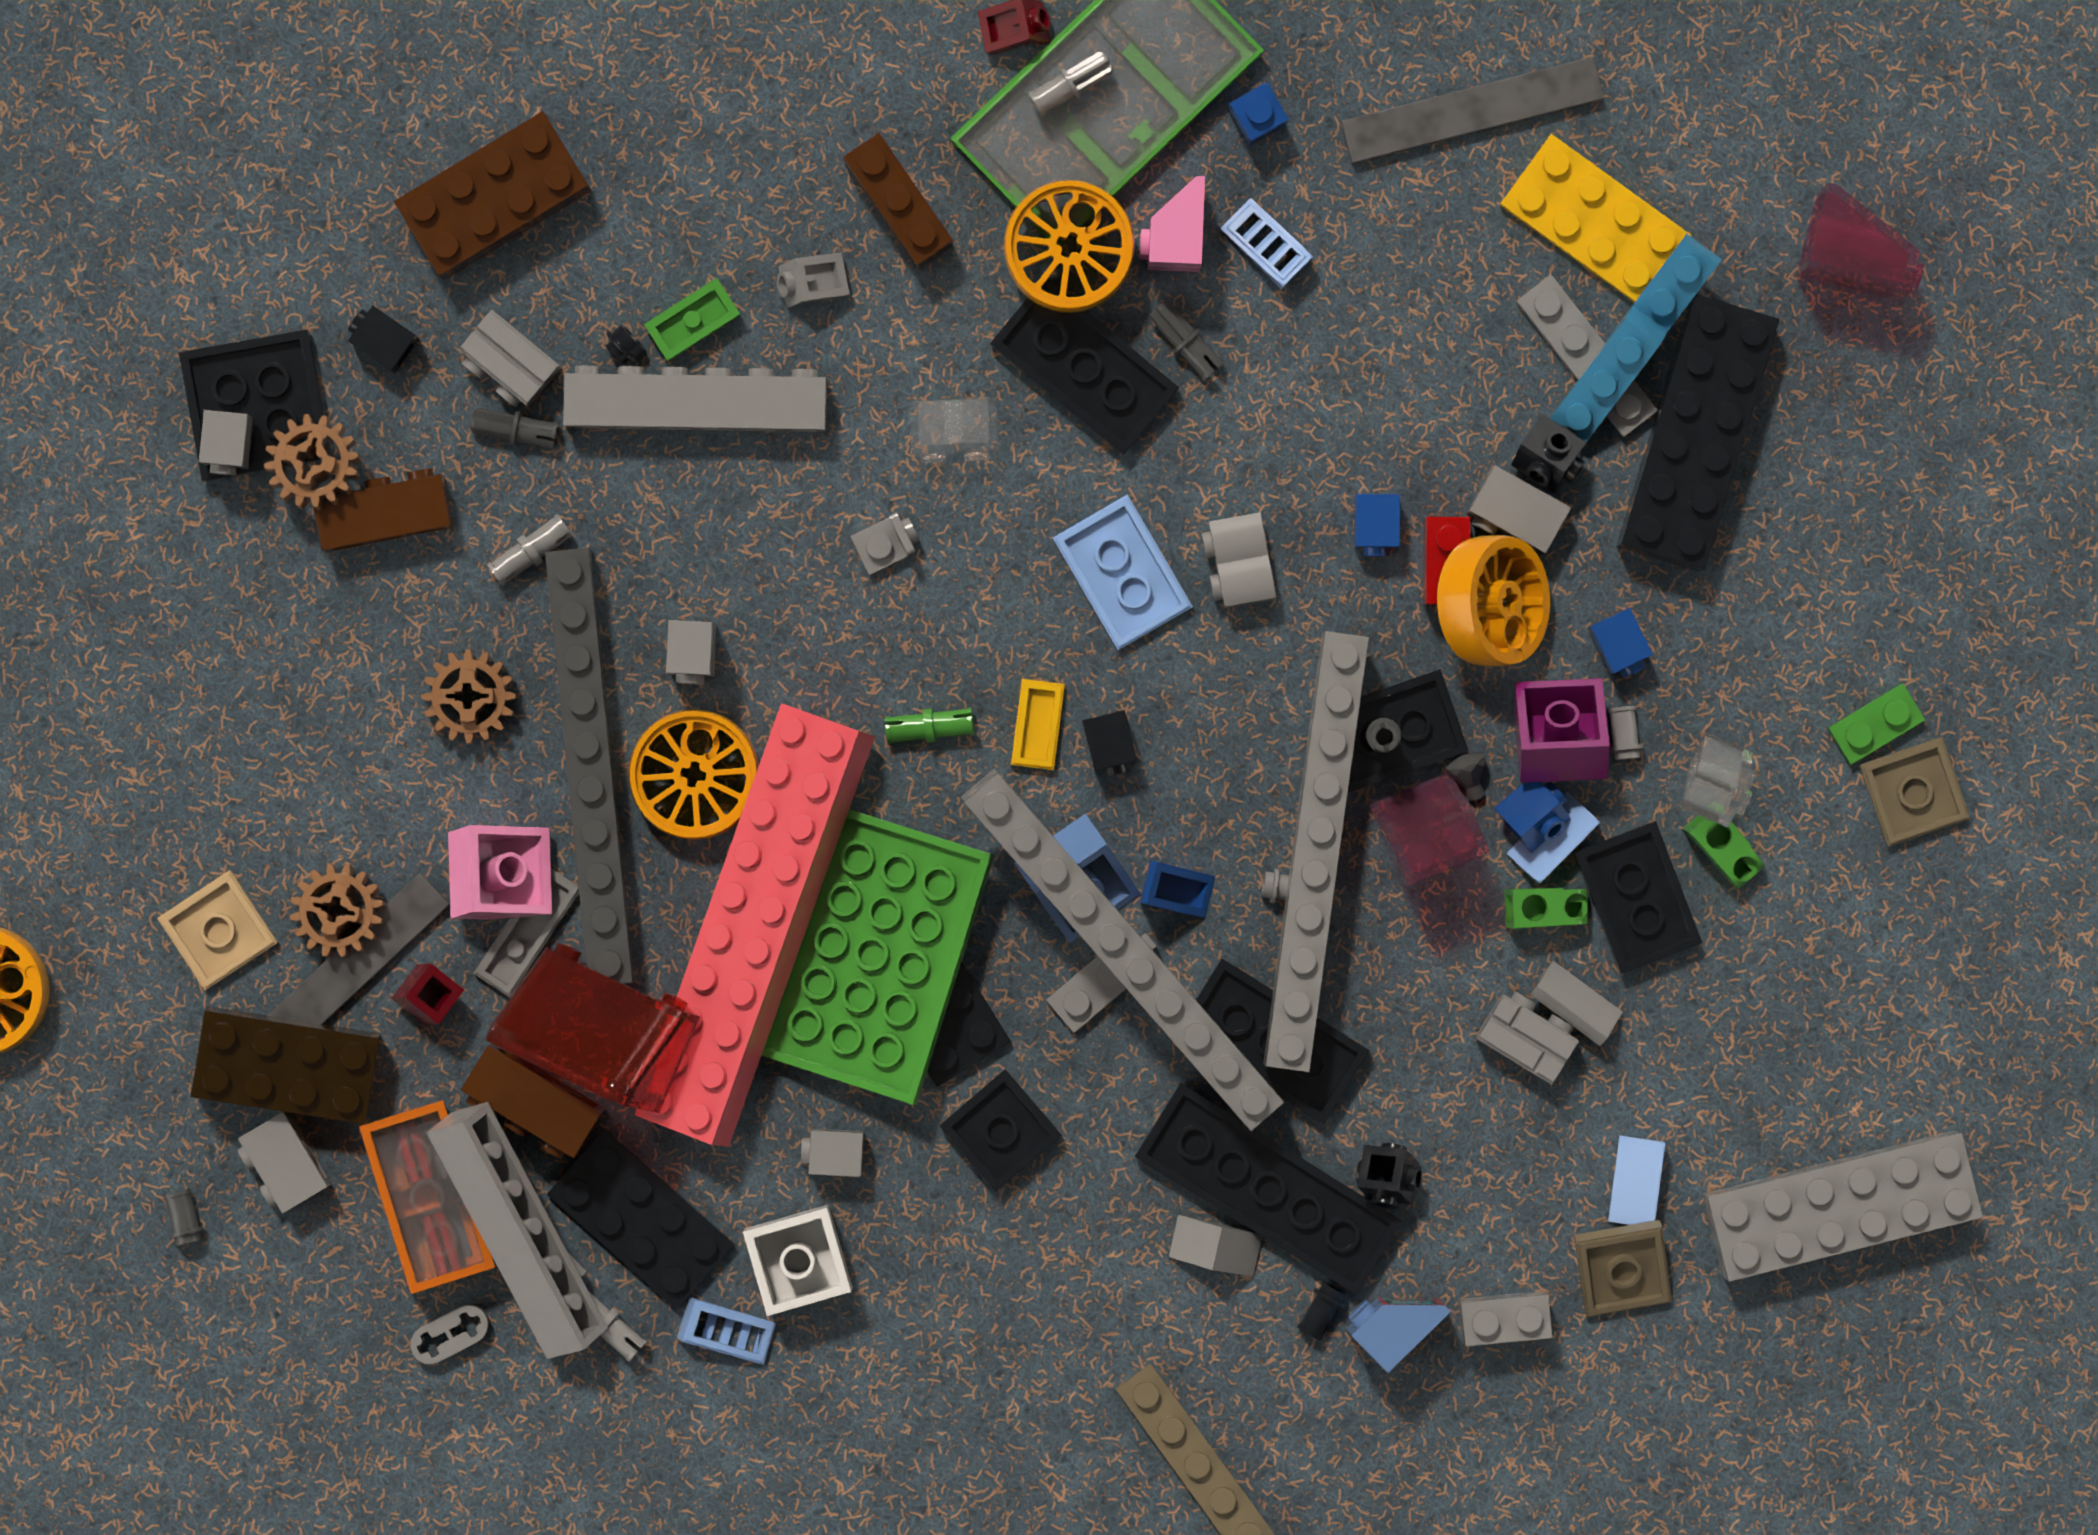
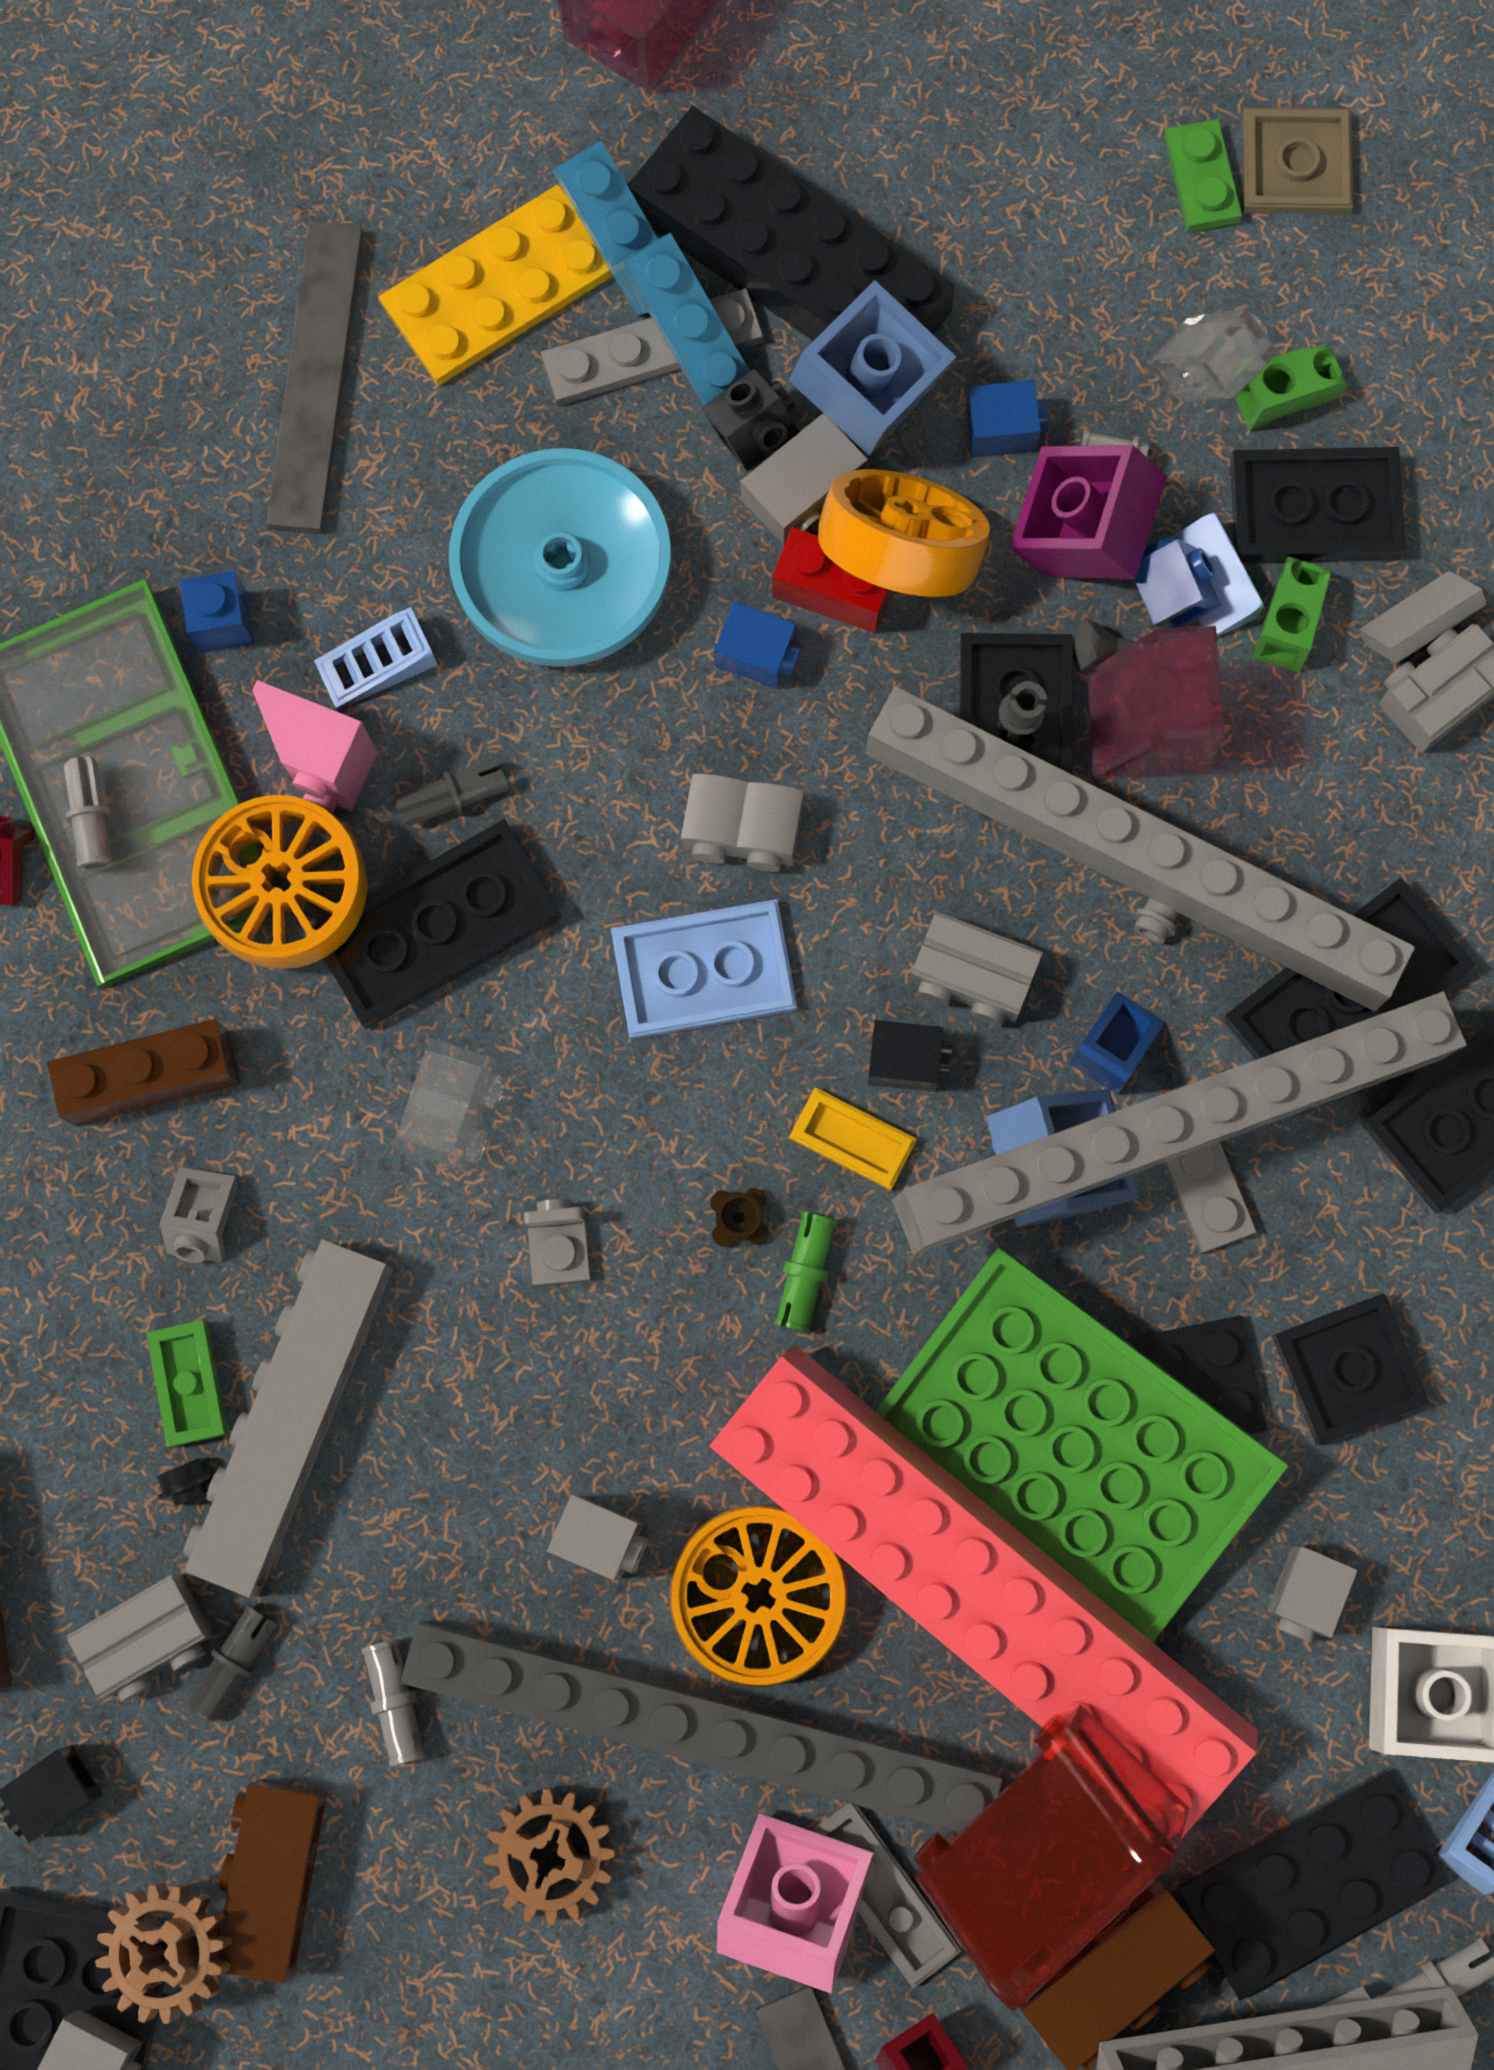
camera: 65 degrees left, 10 degrees down
(956, 652) = (749, 1204): none -> dark brown plate
(1191, 767) = (974, 969): none -> light grey brick
(1390, 353) = (560, 557): none -> medium azure dish
(1611, 532) = (871, 367): none -> medium blue slope

